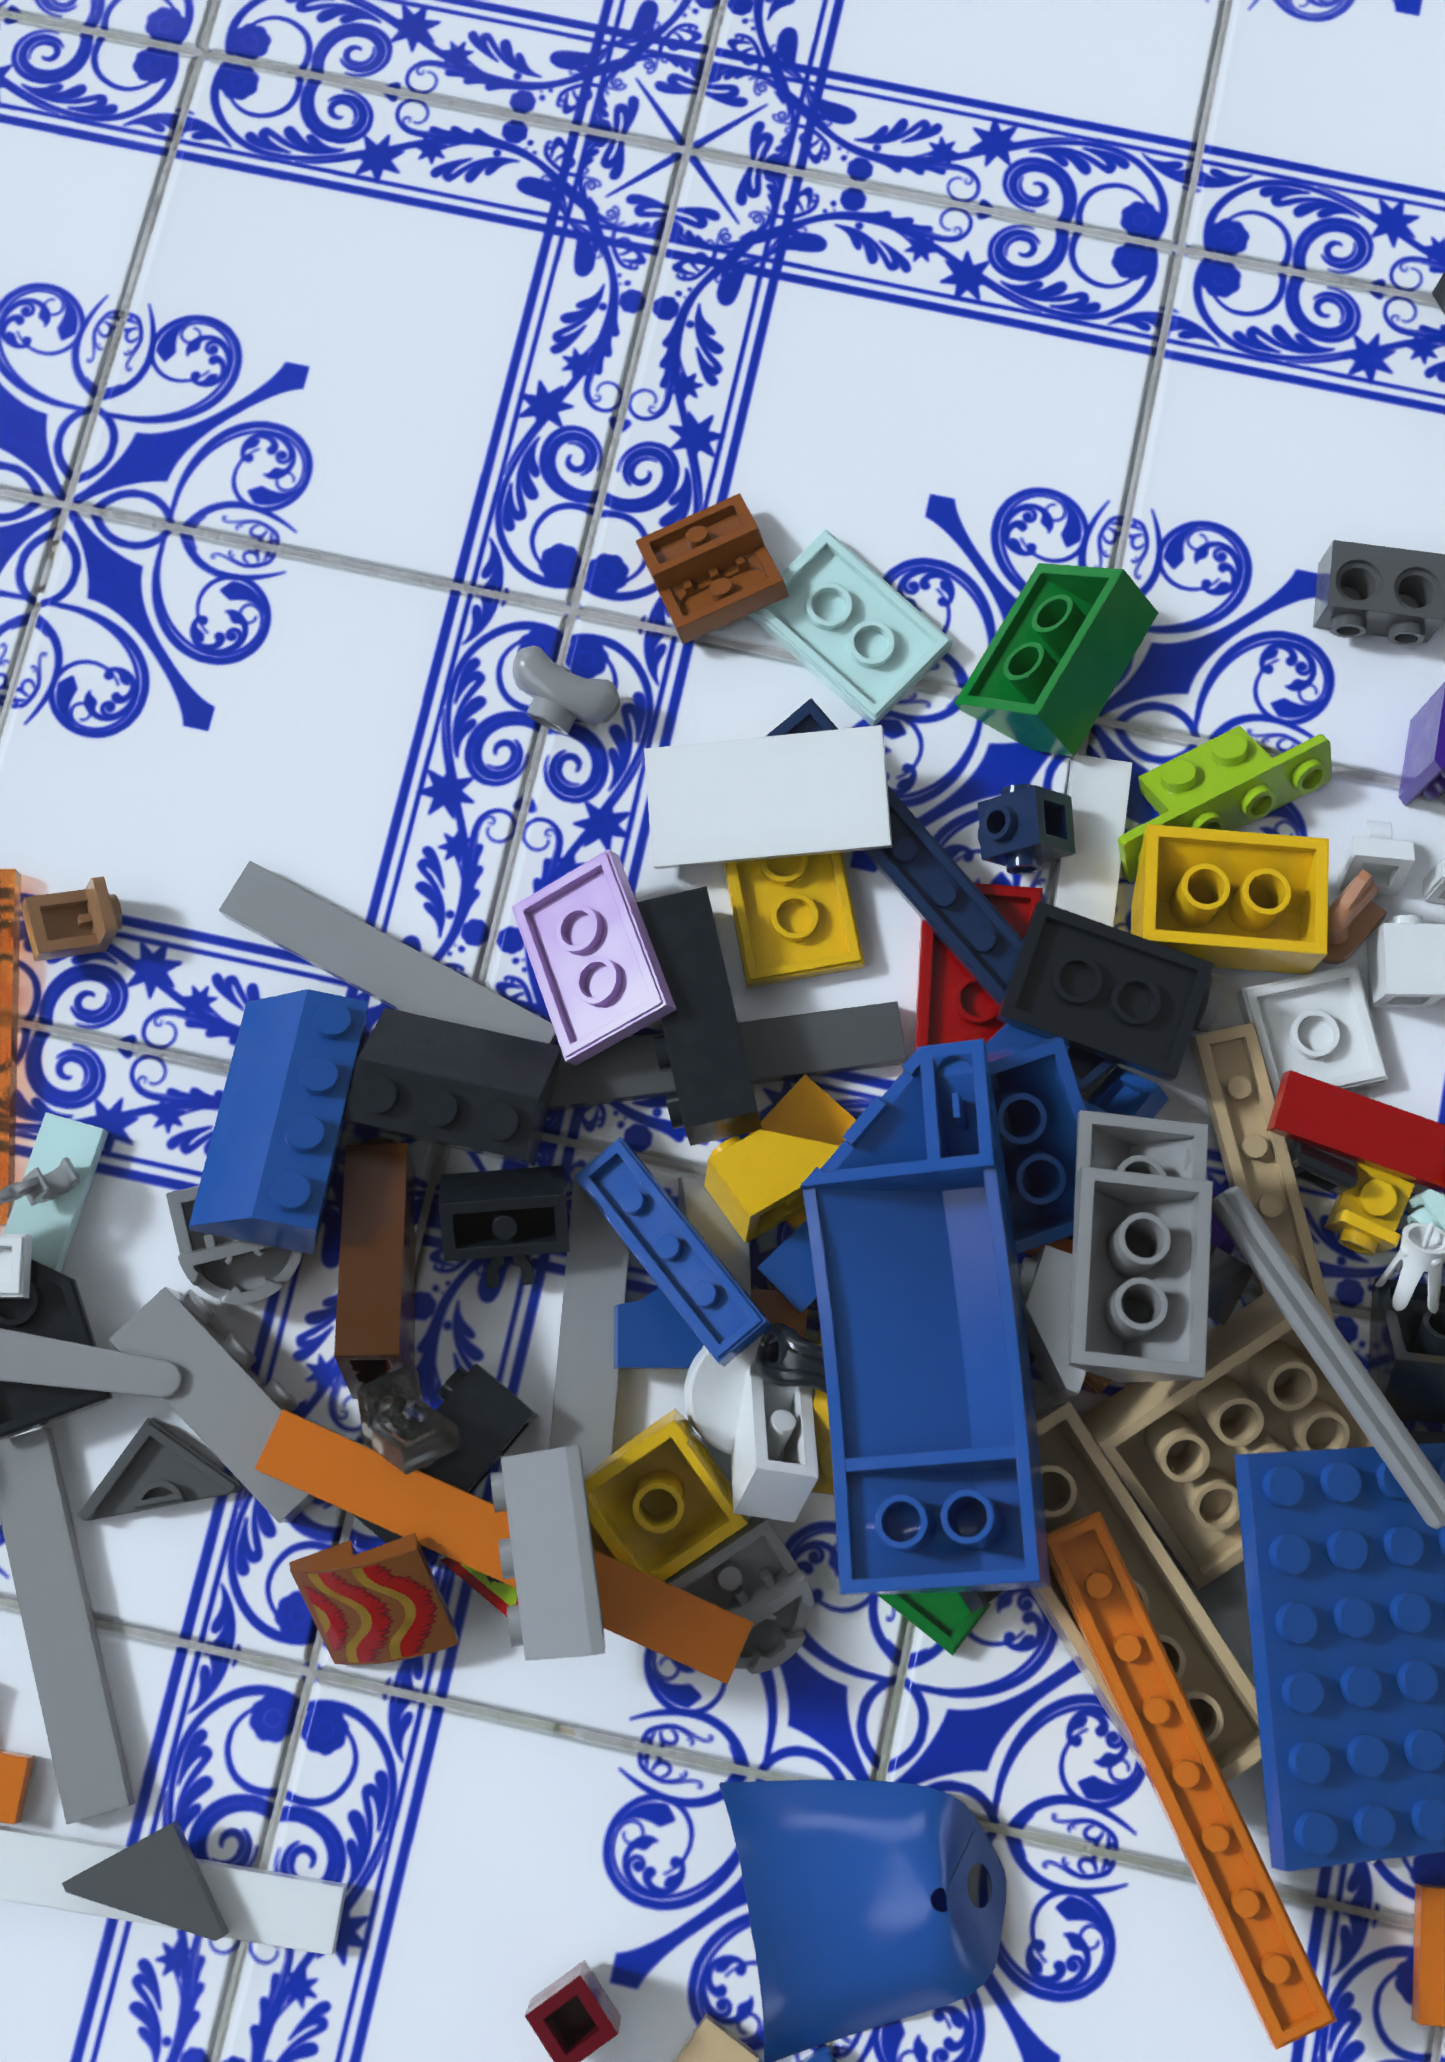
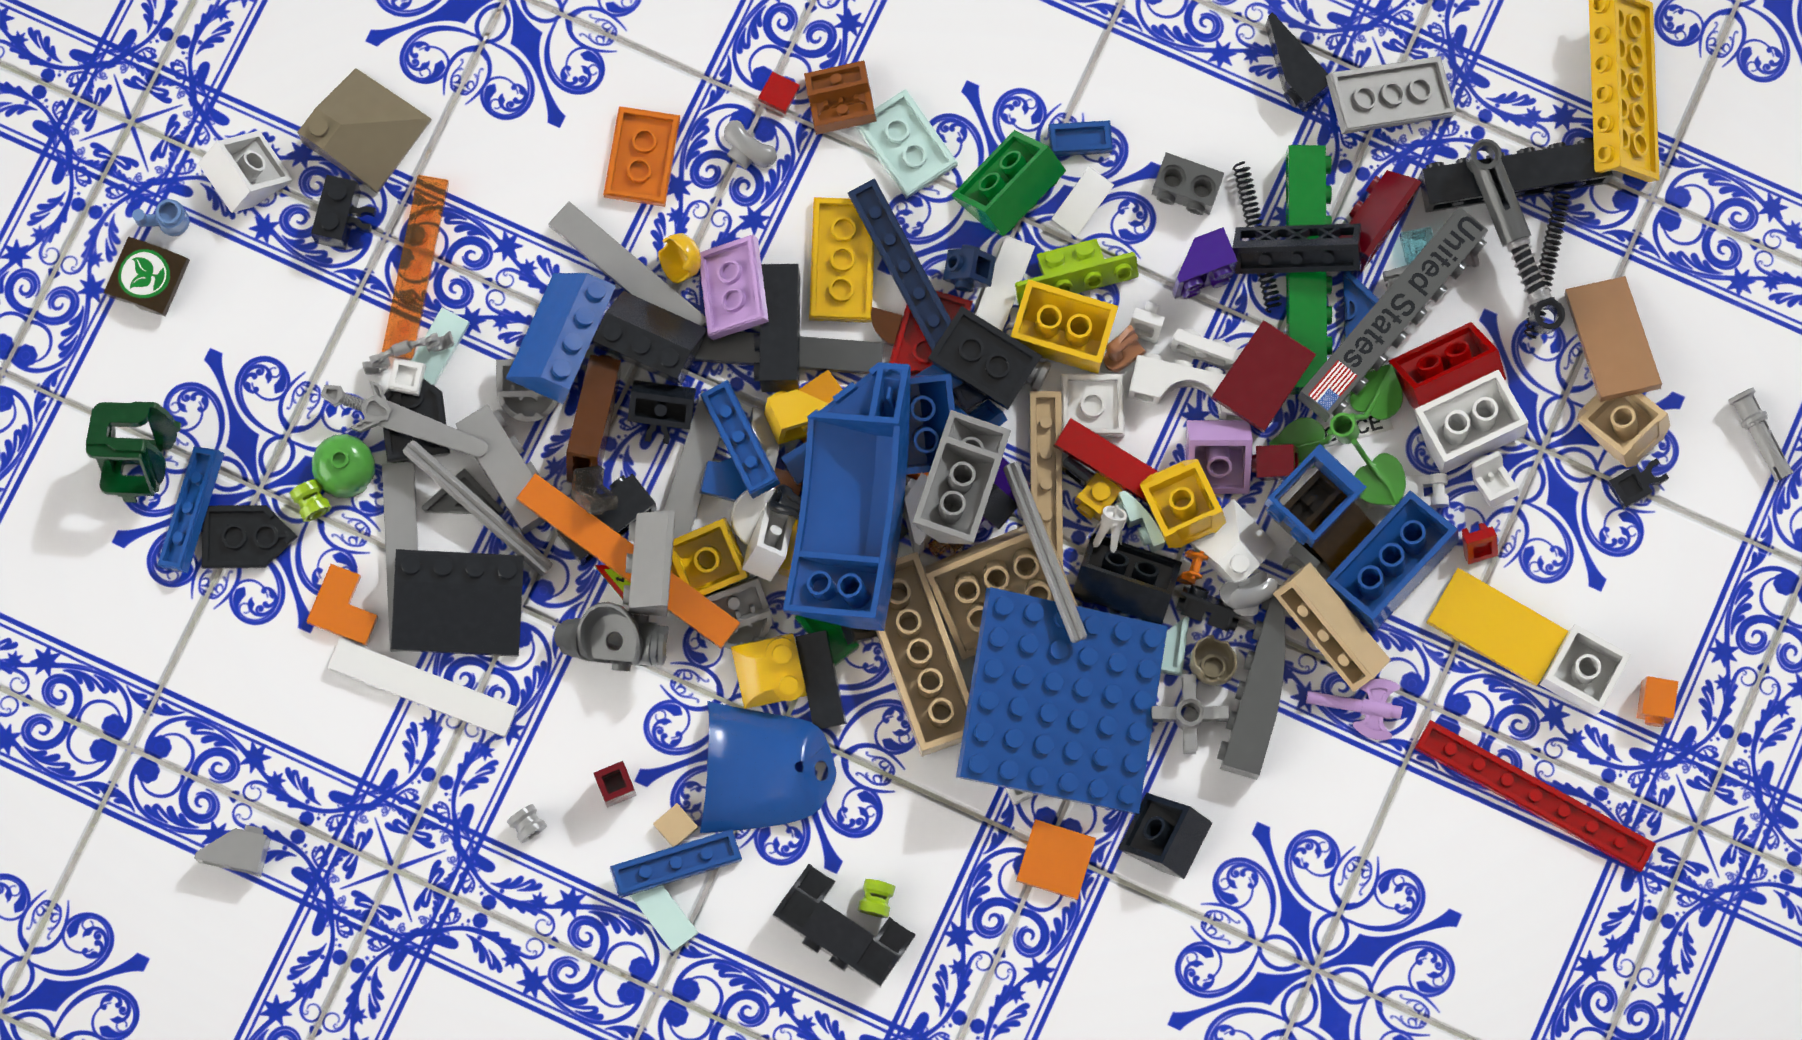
camera: 10 degrees right, 0 degrees up
(72, 921) = (473, 213): medium nougat bracket -> none
(155, 1881) = (427, 681): dark grey tile -> none
(160, 1482) = (477, 507): none -> light grey axle
(179, 1702) = (457, 602): none -> black slope
(370, 751) = (642, 156): none -> orange tile
(375, 1602) = (559, 576): slope -> none
(455, 1709) = (588, 637): none -> dark grey piece
(480, 923) = (679, 257): none -> yellow hair
(597, 584) = (779, 92): none -> red tile
(768, 797) = (840, 225): white tile -> none
(829, 1699) = (769, 671): none -> yellow slope
(893, 966) = (886, 325): none -> reddish brown tile
(934, 1695) = (820, 679): none -> black tile
(1165, 550) = (1080, 138): none -> blue tile
(1188, 1782) = (927, 732): orange tile -> none
(1199, 663) = (1082, 201): none -> white slope

